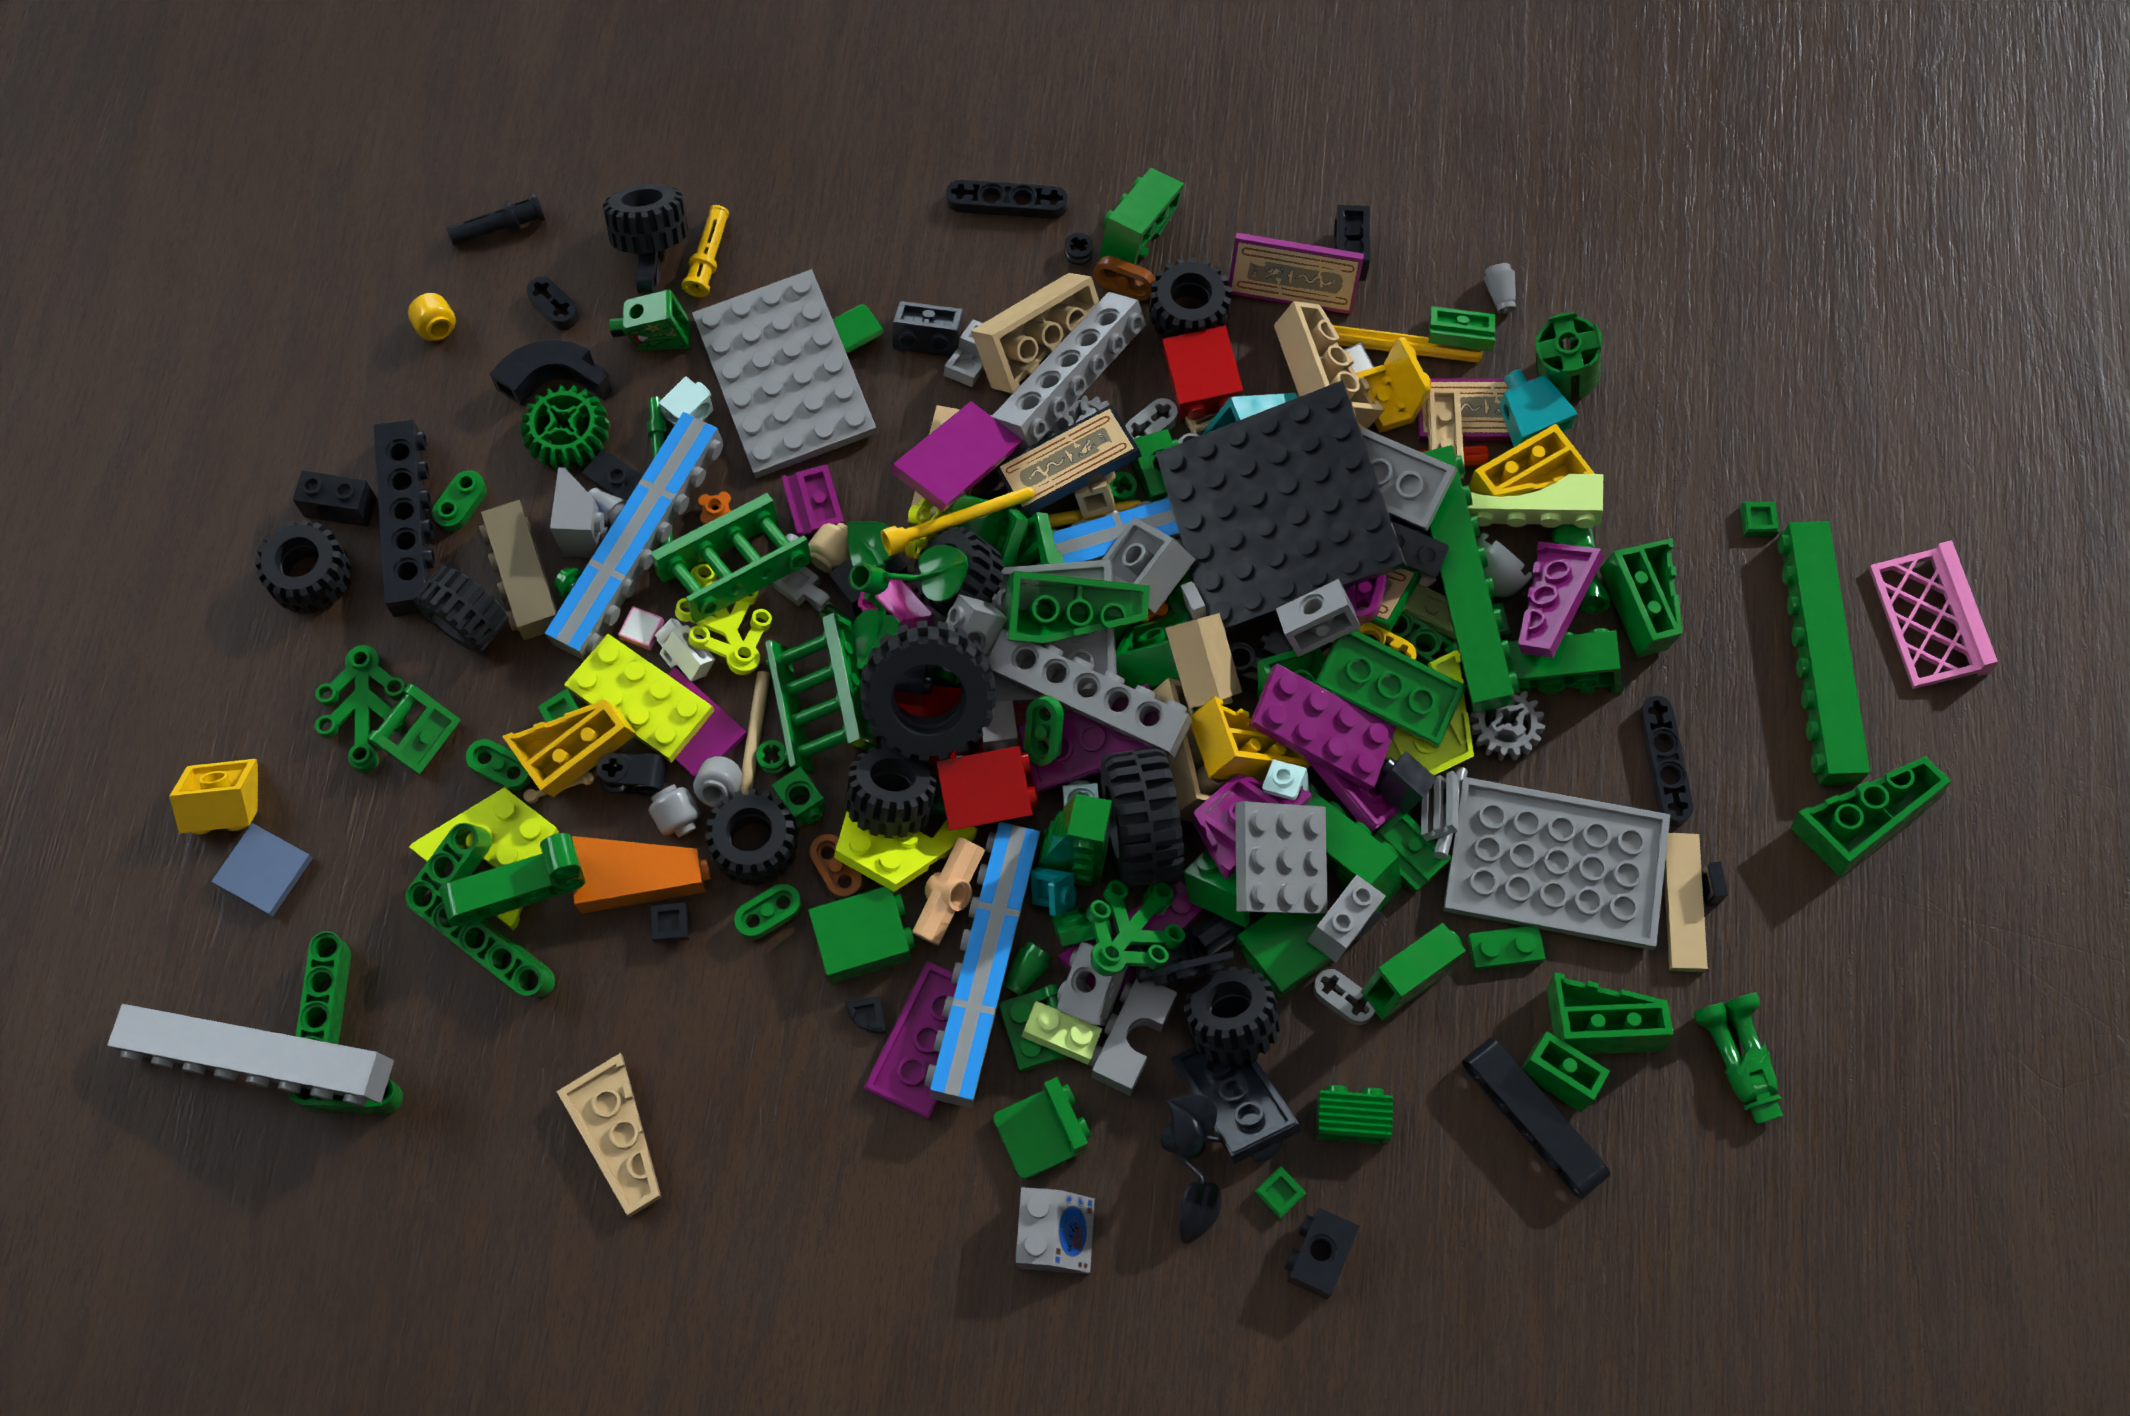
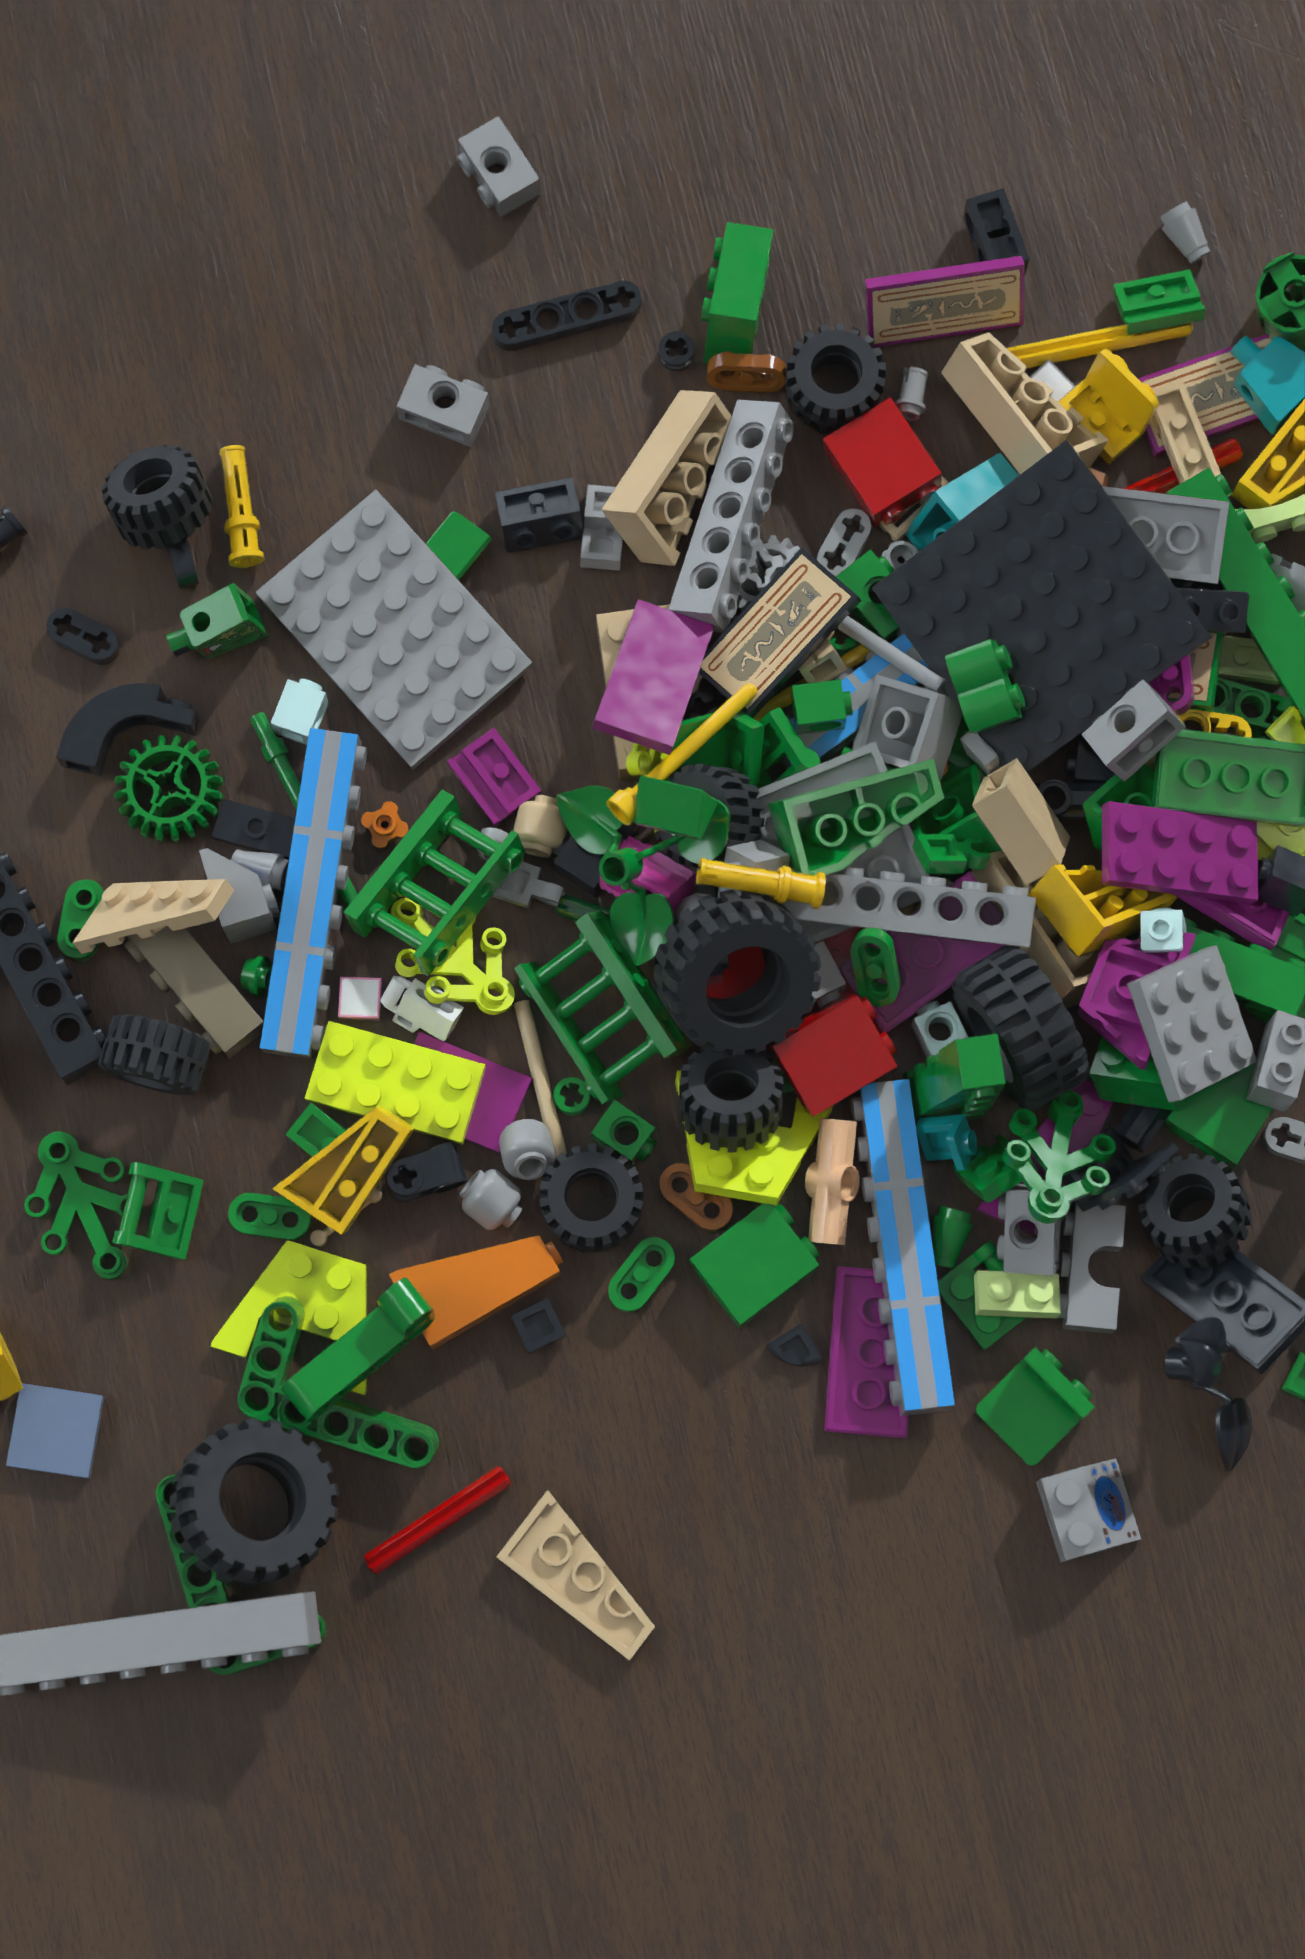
camera: 20 degrees left, 10 degrees up
(389, 927) = (297, 1471): none -> black tyre
(505, 498) = (151, 906): none -> tan wing
(524, 1046) = (437, 1520): none -> red axle
(895, 243) = (458, 422): none -> light grey brick
(927, 547) = (673, 807): none -> green slope
(988, 633) = (780, 884): none -> yellow pin
(1006, 95) = (495, 145): none -> light grey brick
(1080, 525) = (820, 706): none -> green brick
(1132, 663) = (945, 855): none -> green plate
(1152, 506) = (892, 654): none -> light grey bar
(1212, 547) = (984, 686): none -> green brick
(1242, 339) = (912, 393): none -> light grey pin

